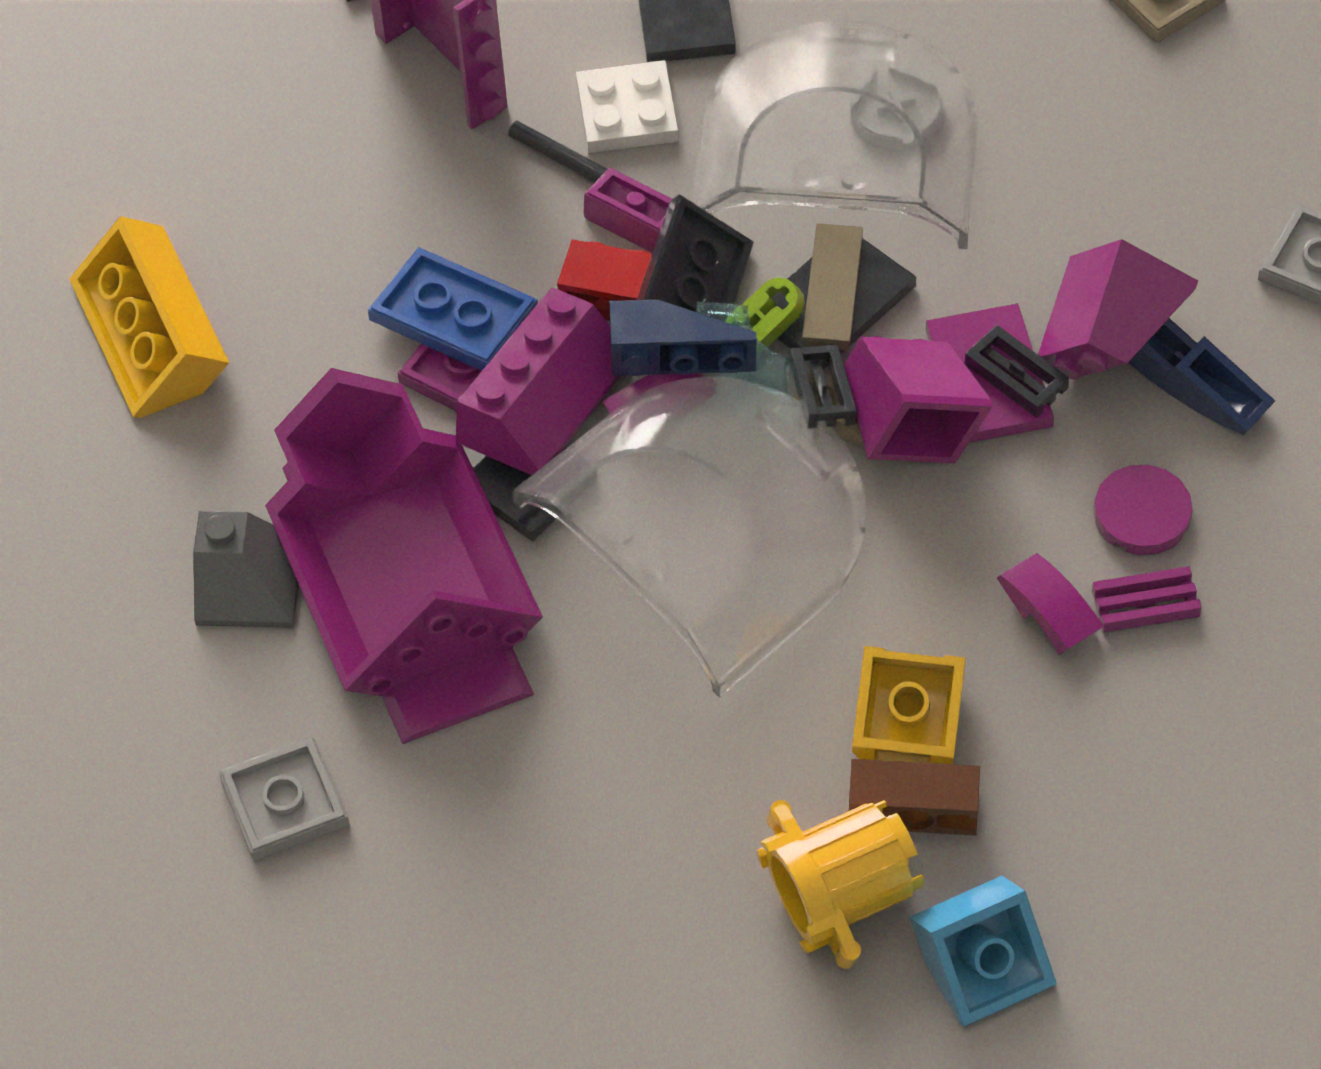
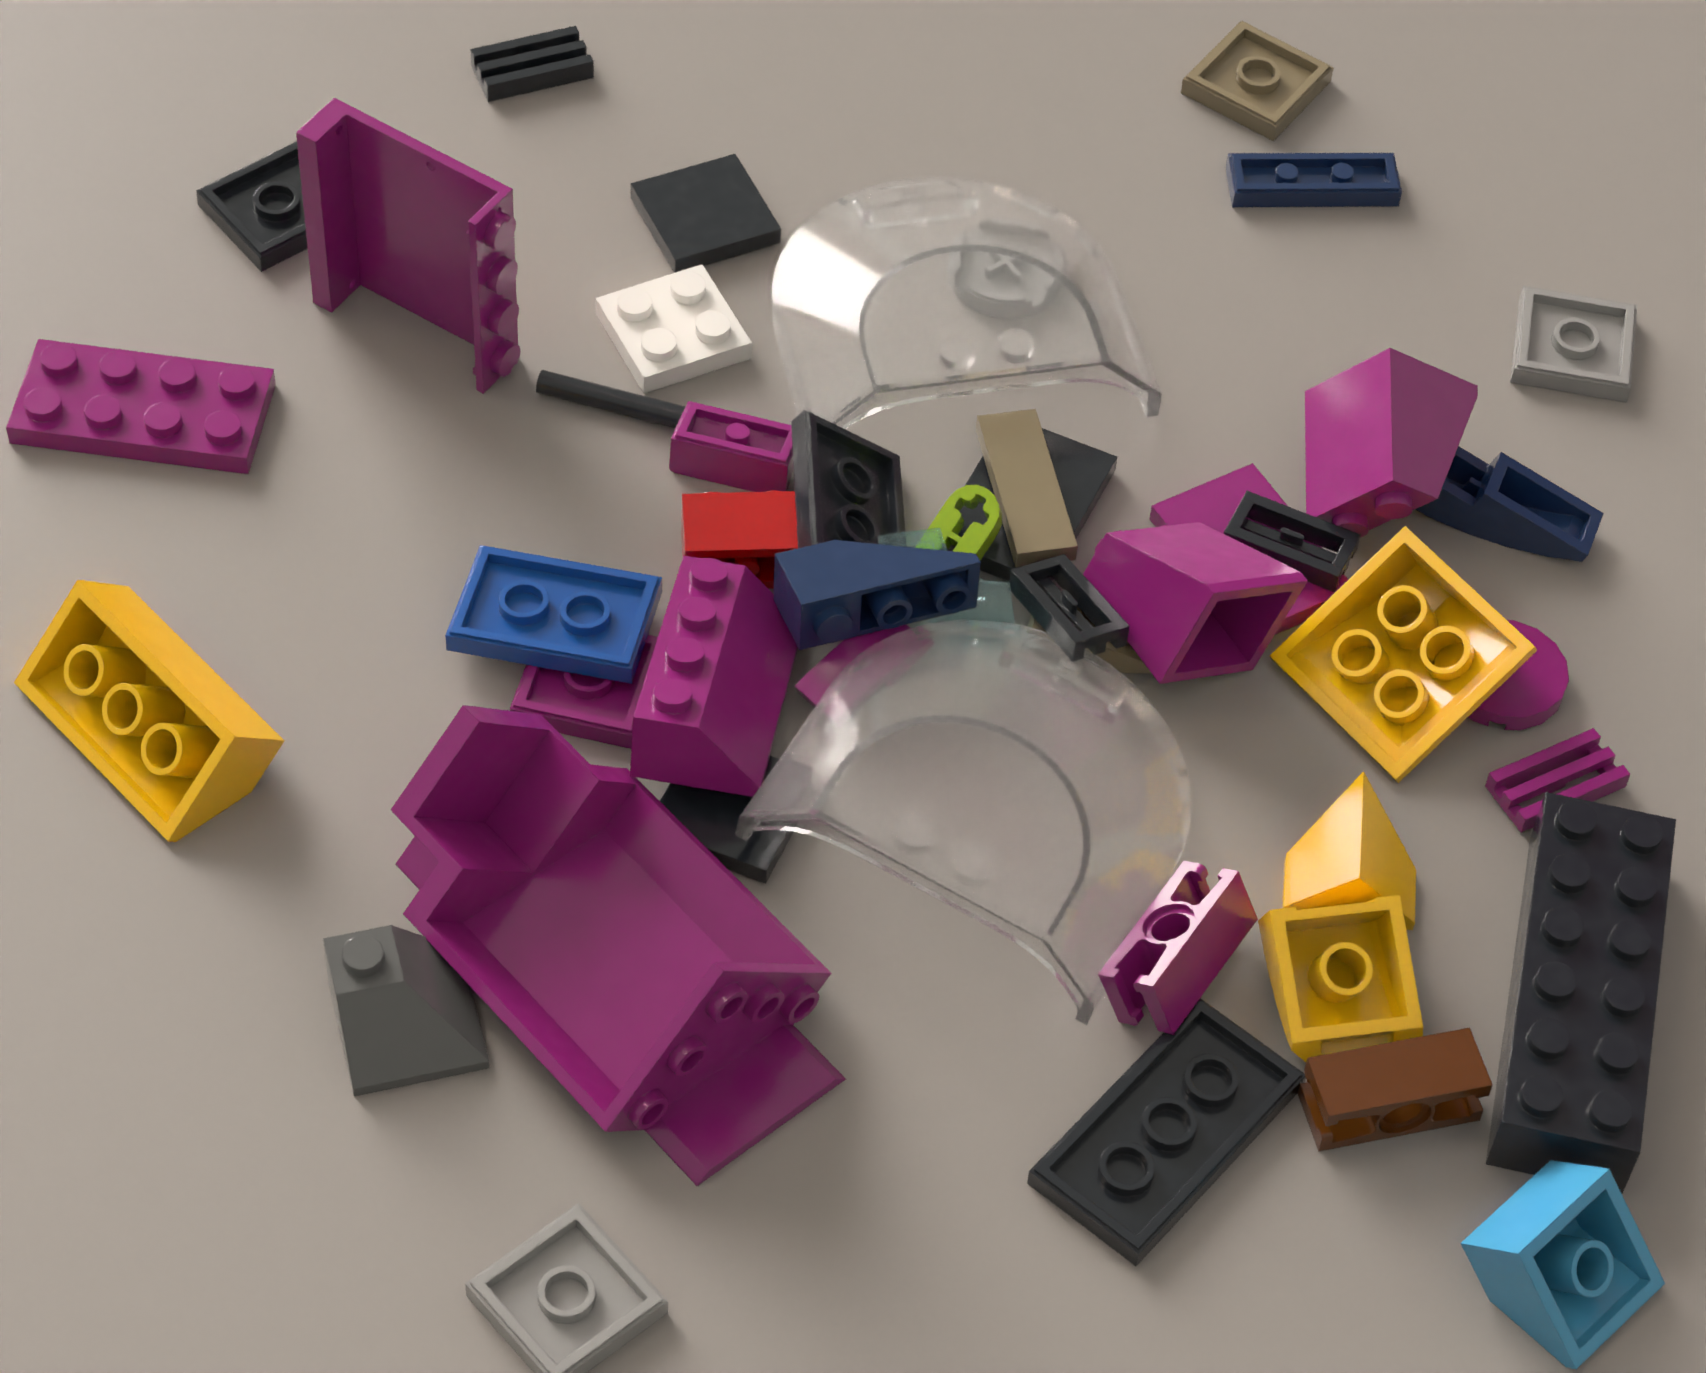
camera: 25 degrees left, 5 degrees down
(225, 90) = (141, 406): none -> magenta plate
(729, 788) = (1166, 1131): none -> black tile
(798, 656) = (1178, 947): none -> magenta piece
(838, 872) = (1352, 1210): yellow container -> none
(960, 623) = (1350, 857): none -> yellow slope
(1053, 601) = (1438, 796): magenta slope -> none
(1063, 473) = (1402, 653): none -> yellow slope
(1085, 758) = (1583, 989): none -> black brick
(1171, 82) = (1313, 180): none -> dark blue tile

